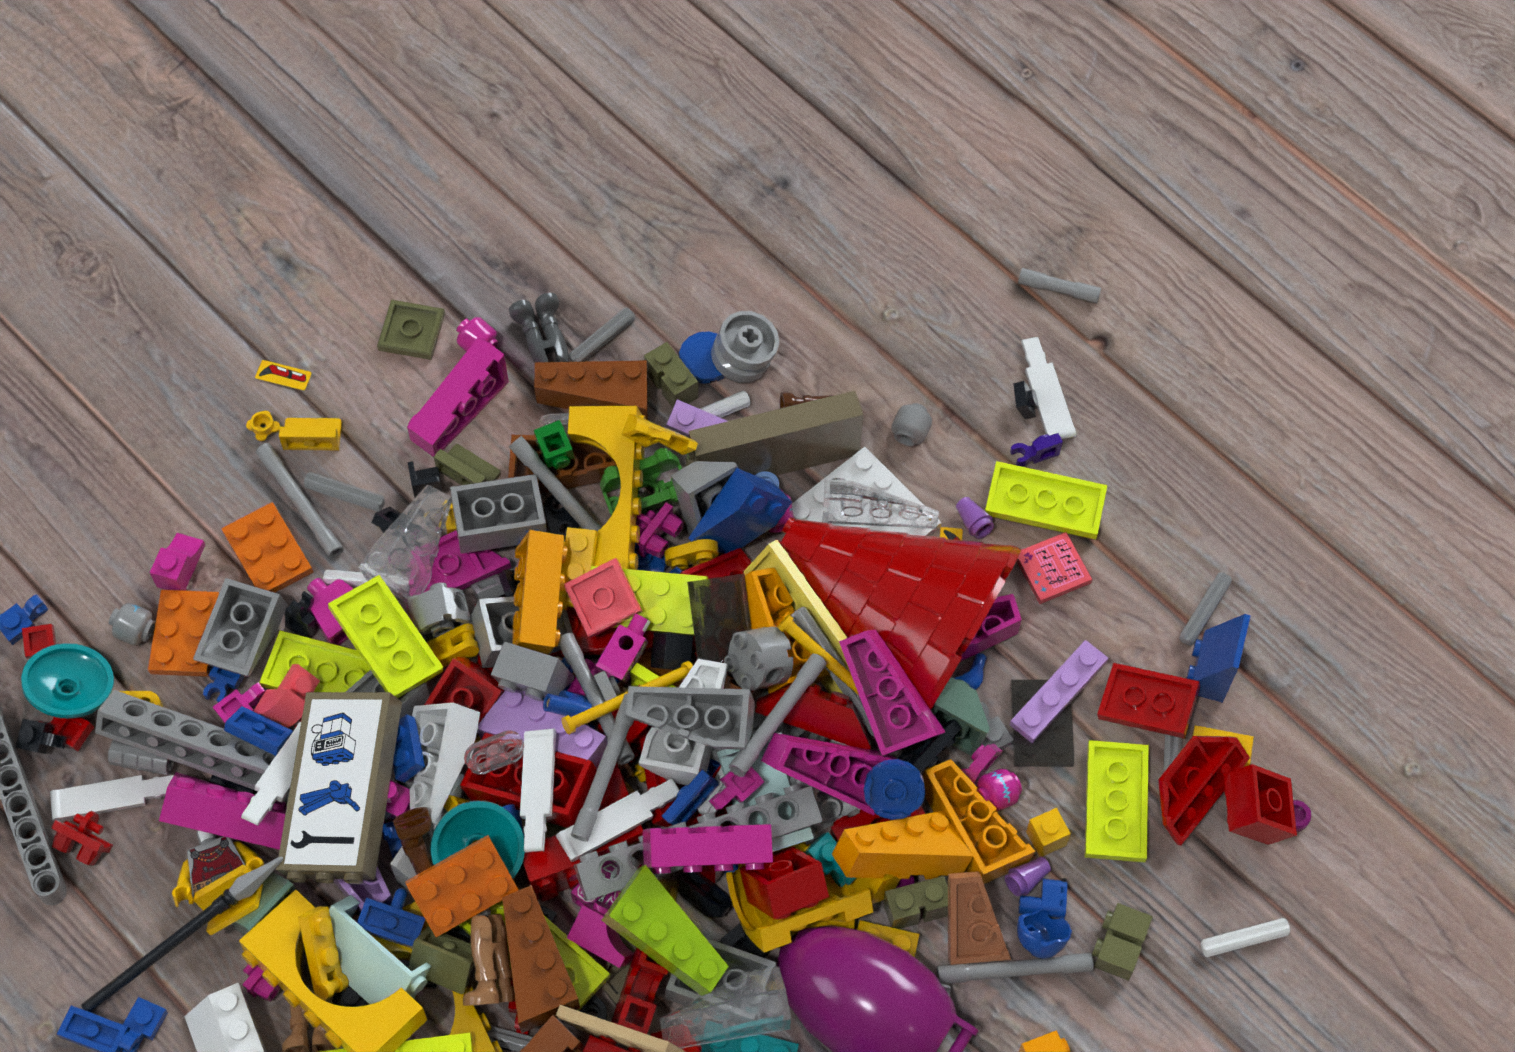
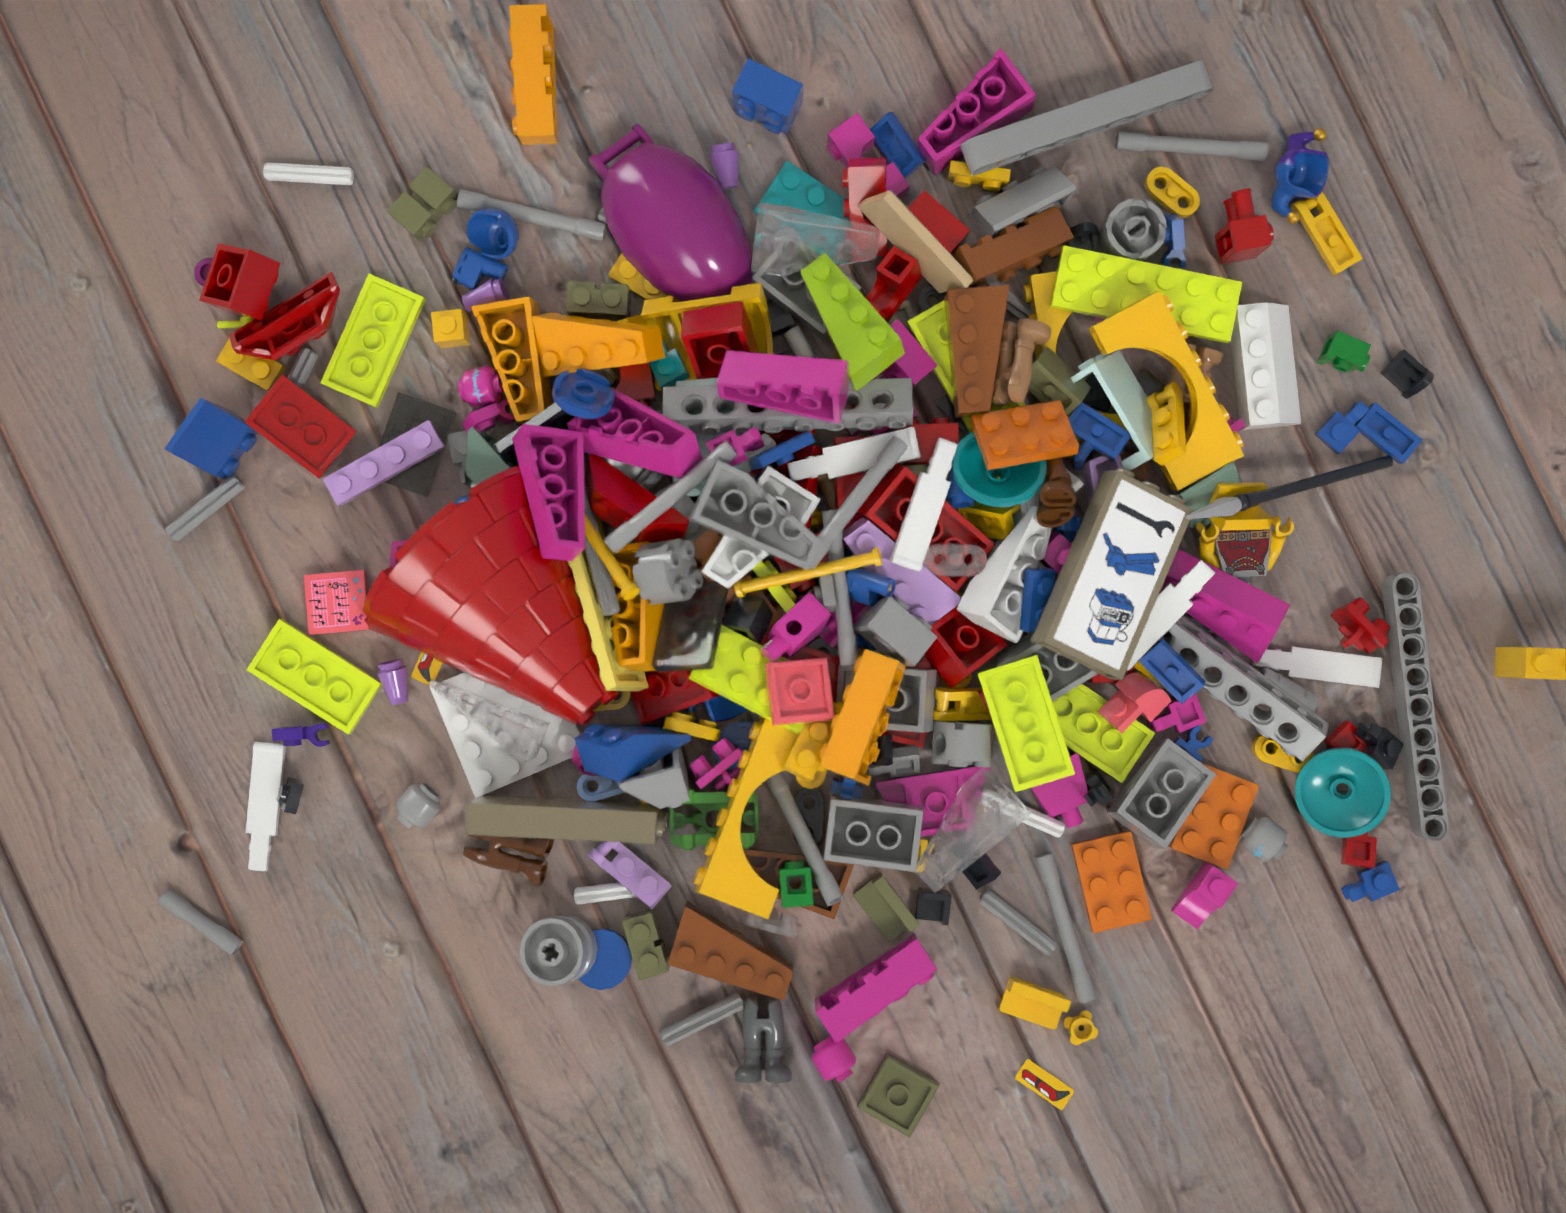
camera: 165 degrees left, 25 degrees up
(649, 433) = (687, 848): yellow slope -> none
(972, 923) = (556, 259): nougat wing -> none

